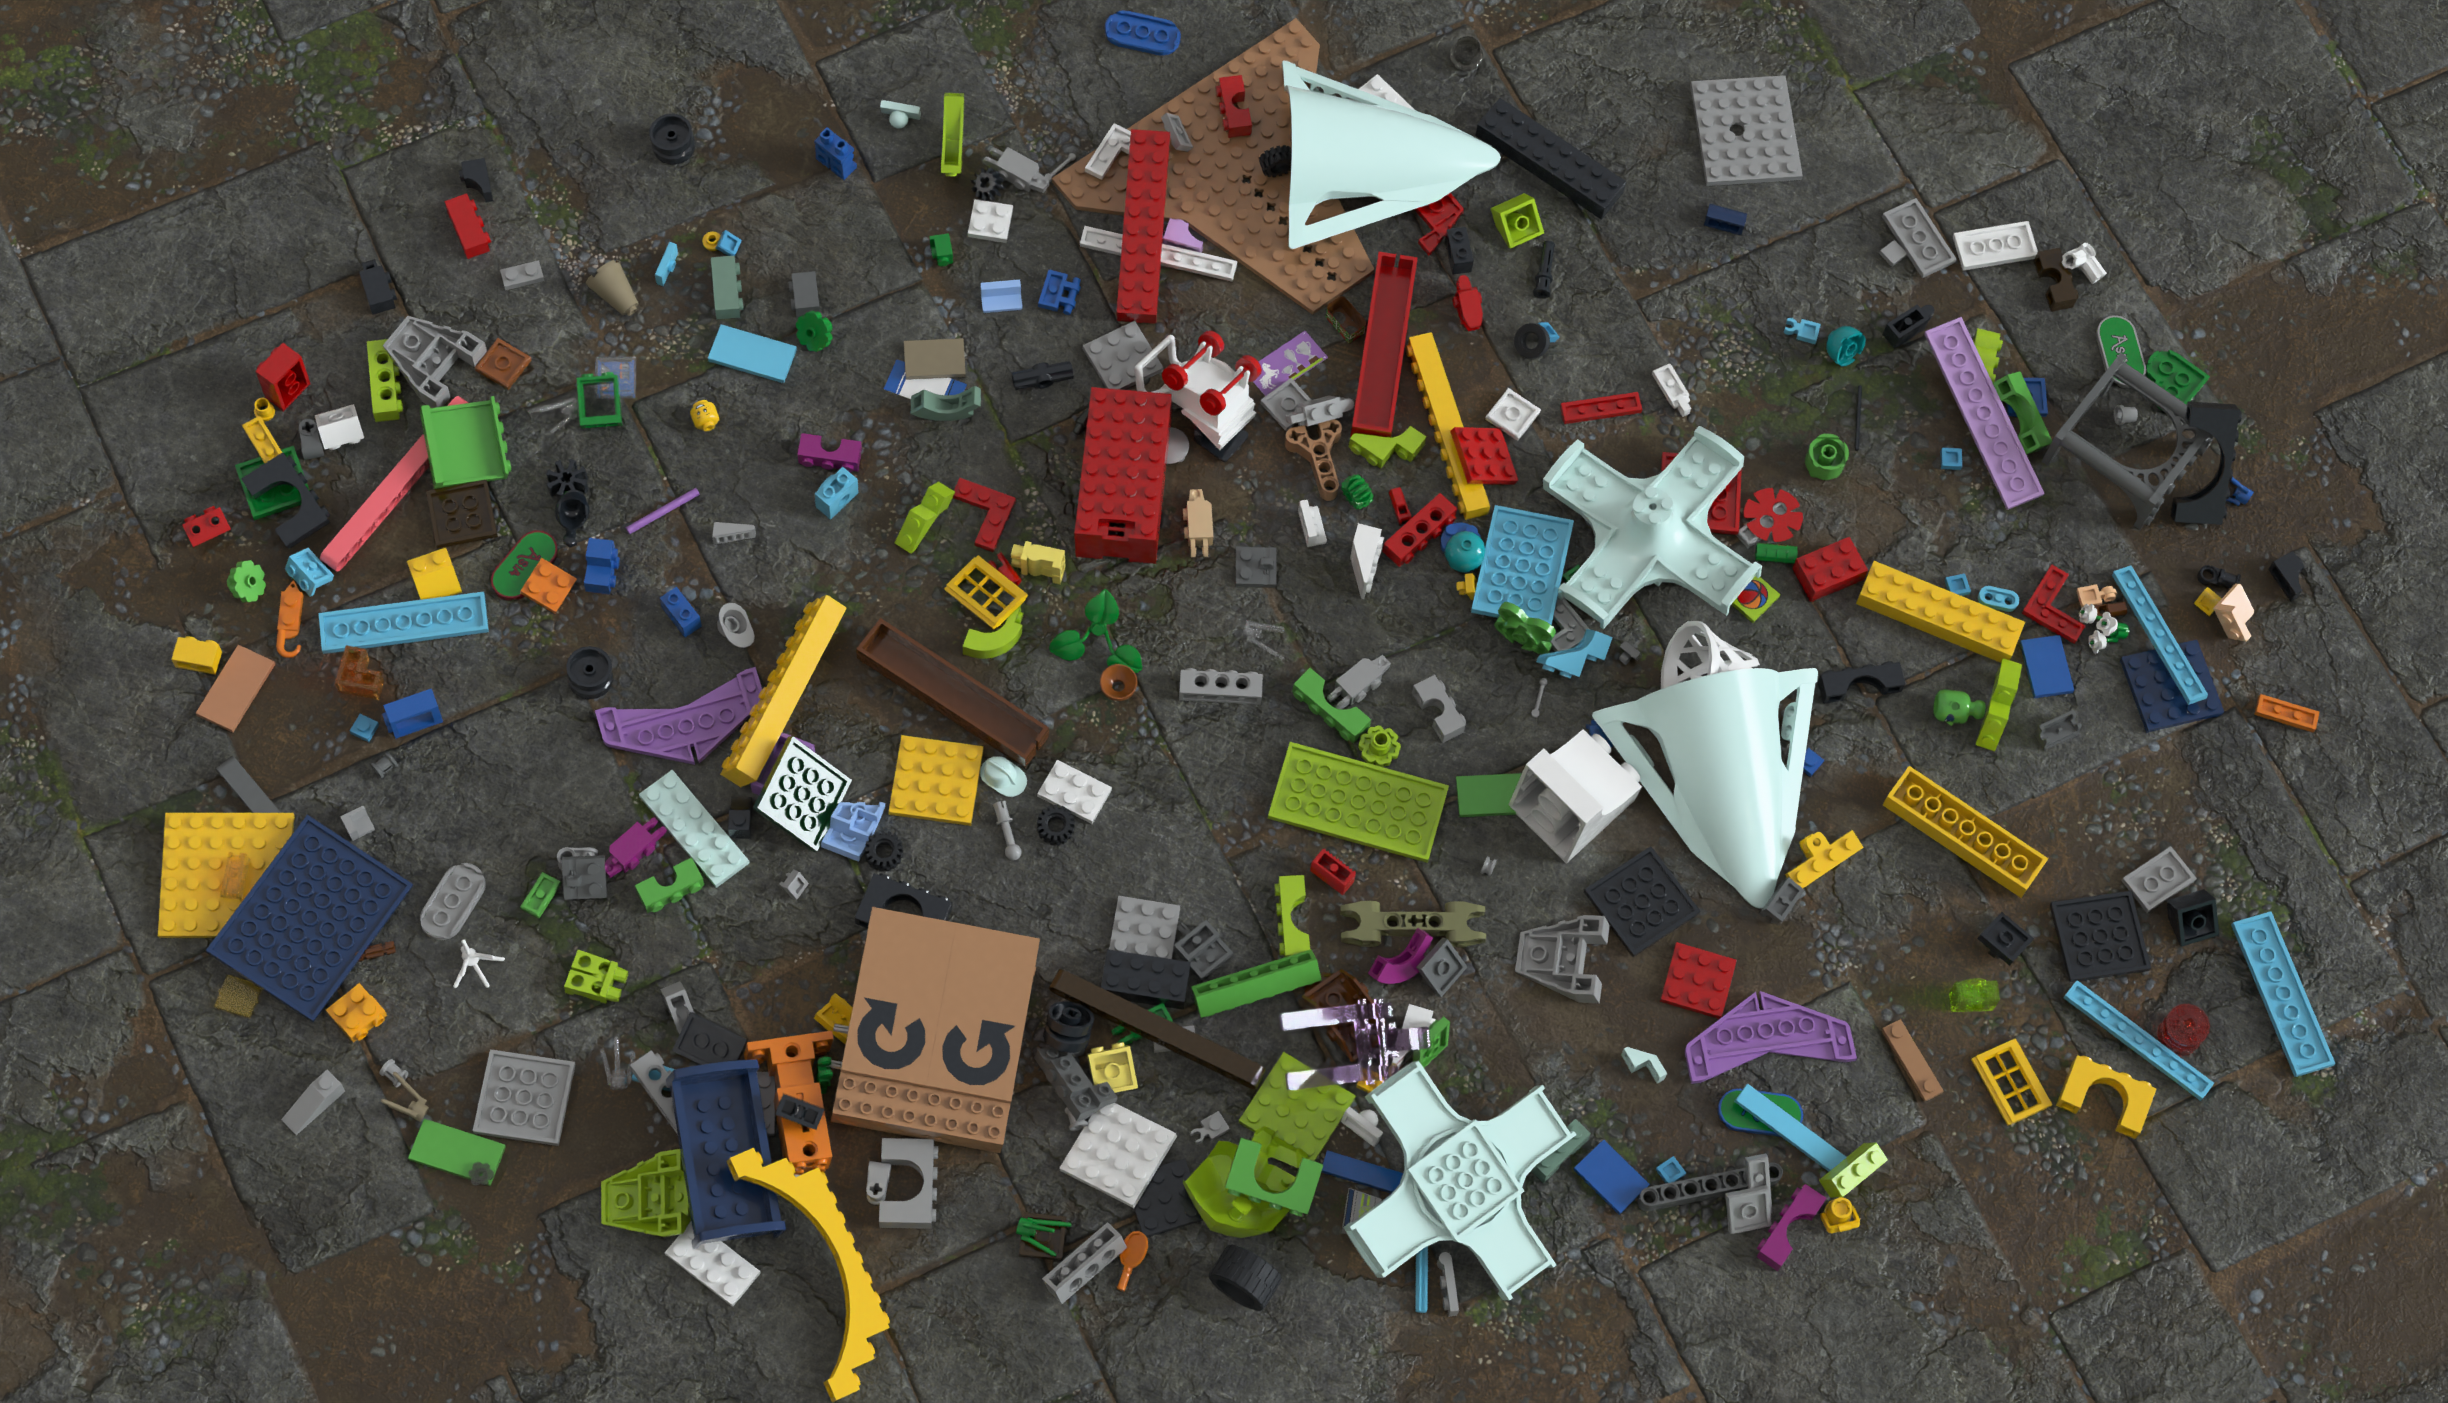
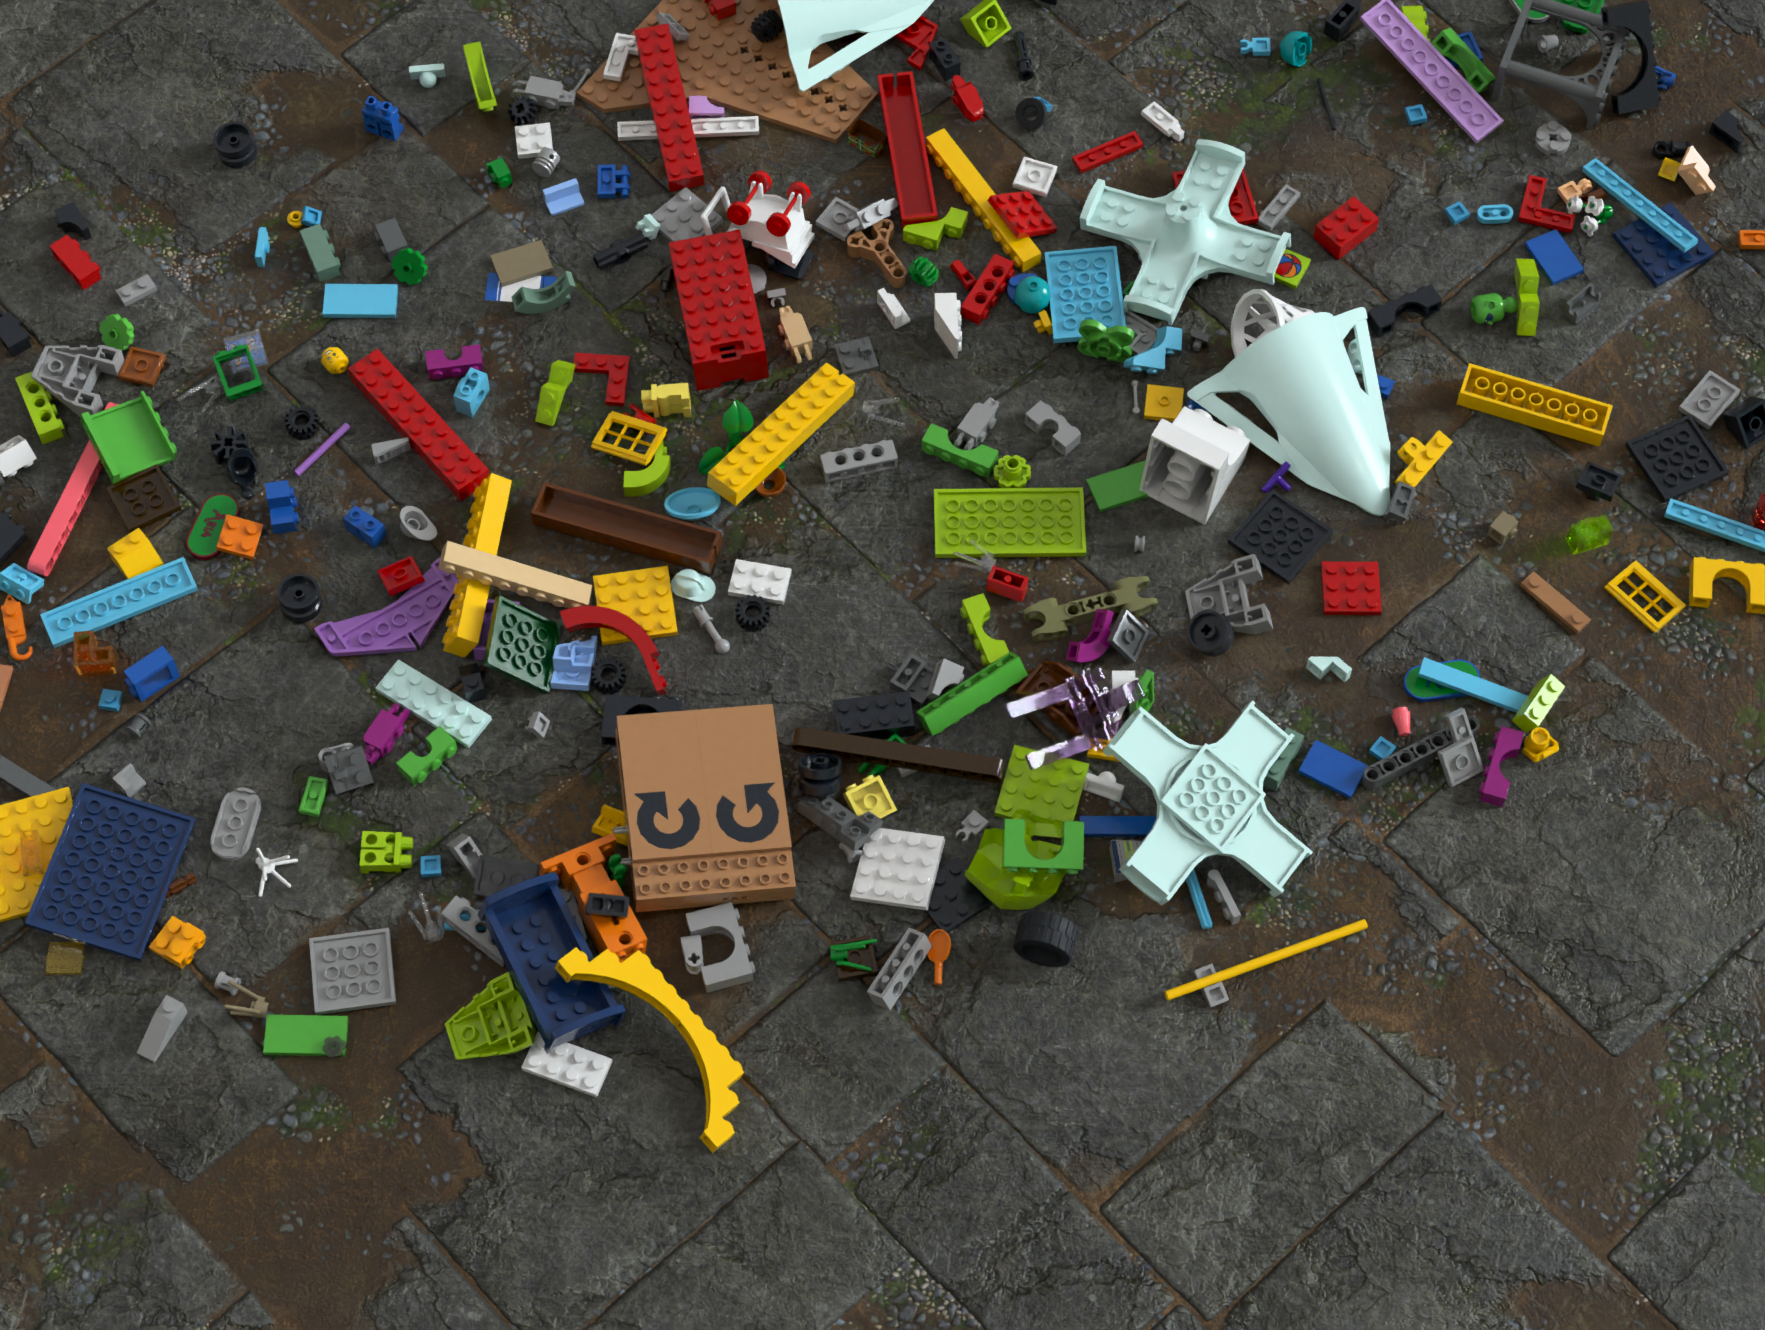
camera: 10 degrees left, 5 degrees down
(487, 319) = (117, 332): none -> bright green plant
(614, 288) = (221, 277): dark tan cone -> none
(637, 1007) = (431, 866): none -> dark azure plate
(650, 485) = (298, 413): none -> black tyre
(701, 677) = (400, 575): none -> red plate
(771, 513) = (419, 423): none -> red brick
(817, 718) = (514, 576): none -> tan brick
(880, 781) = (602, 617): none -> red arch
(993, 252) = (543, 164): none -> light grey piece
(1029, 685) = (692, 503): none -> medium azure dish
(1081, 356) = (648, 226): none -> light aqua tile
(1144, 927) = (858, 674): light grey plate -> none
(1146, 634) = (780, 434): none -> yellow piece
(1192, 471) = (776, 294): none -> light grey tile
(1233, 955) = (945, 675): none -> light grey arch
(1289, 362) = (829, 184): medium lavender sticker -> none
(1317, 842) = (984, 564): none -> clear plant
(1403, 1376) = (1215, 993): none -> light grey slope
(1472, 1365) = (1265, 959): none -> yellow piece
(1529, 990) = (1210, 633): none -> black wheel
(1567, 713) = (1163, 402): none -> yellow plate
(1660, 835) = (1277, 478): none -> dark purple piece
(1702, 1145) = (1401, 718): none -> coral cone
(1767, 500) = (1292, 207): red piece -> none
(1776, 553) = (1296, 226): green axle -> none
(1777, 1028) = (1431, 607): medium lavender wing -> none
(1826, 457) = (1311, 139): bright green brick -> none
(1884, 961) = (1503, 528): none -> dark tan brick
(1940, 612) = (1450, 237): yellow brick -> none
(2089, 538) = (1556, 131): none -> light grey plate

